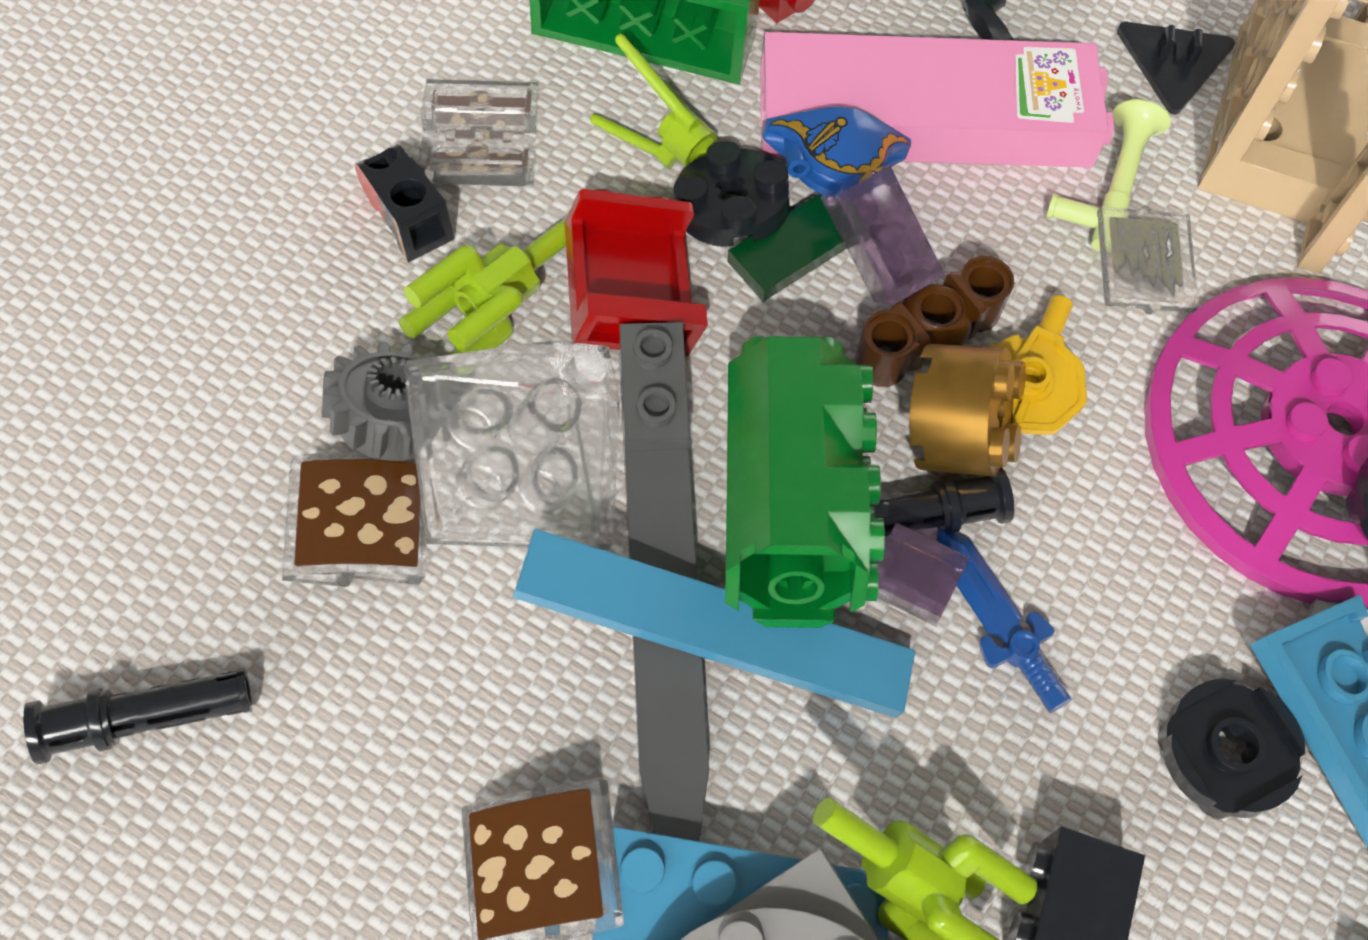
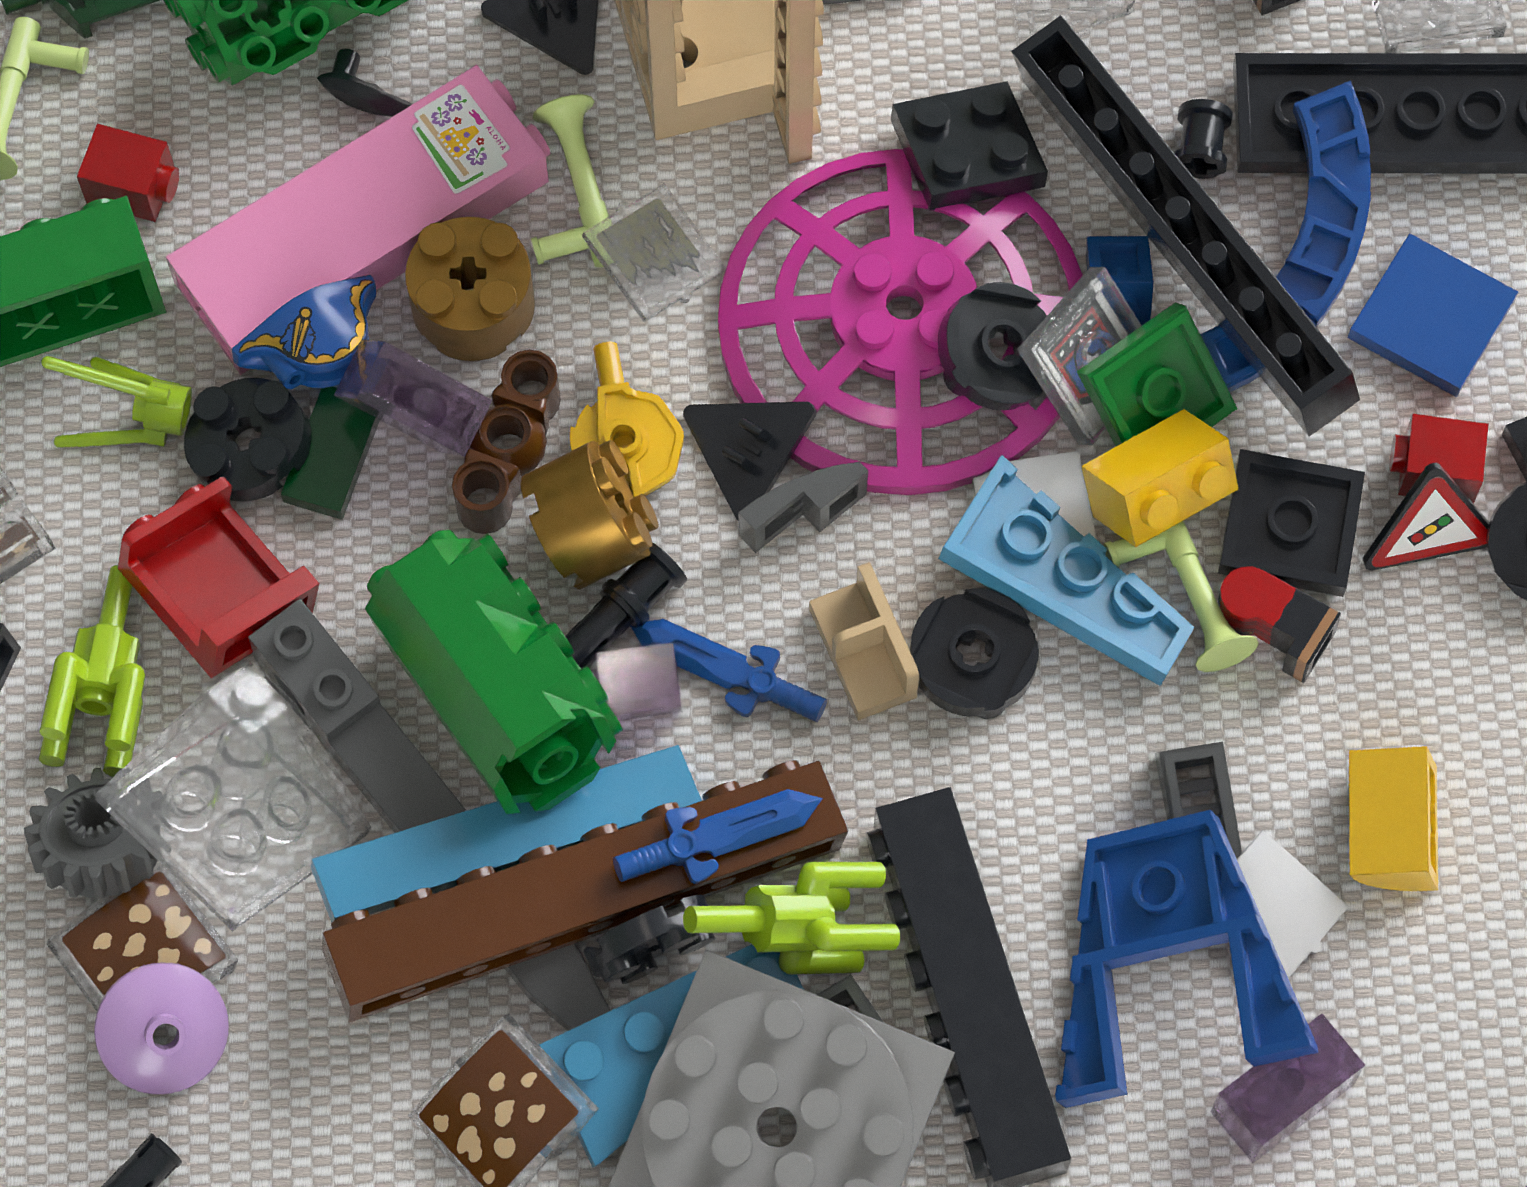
camera: 30 degrees left, 5 degrees up
(345, 570) = (155, 997): none -> lavender dish
(752, 716) = (555, 898): none -> reddish brown brick
(756, 797) = (631, 947): none -> black plate
(900, 750) = (717, 834): none -> blue sword
(983, 192) = (466, 256): none -> pearl gold brick
(1133, 450) = (748, 443): none -> black piece
(1139, 677) = (866, 645): none -> tan panel
(1168, 523) = (816, 496): none -> dark grey slope

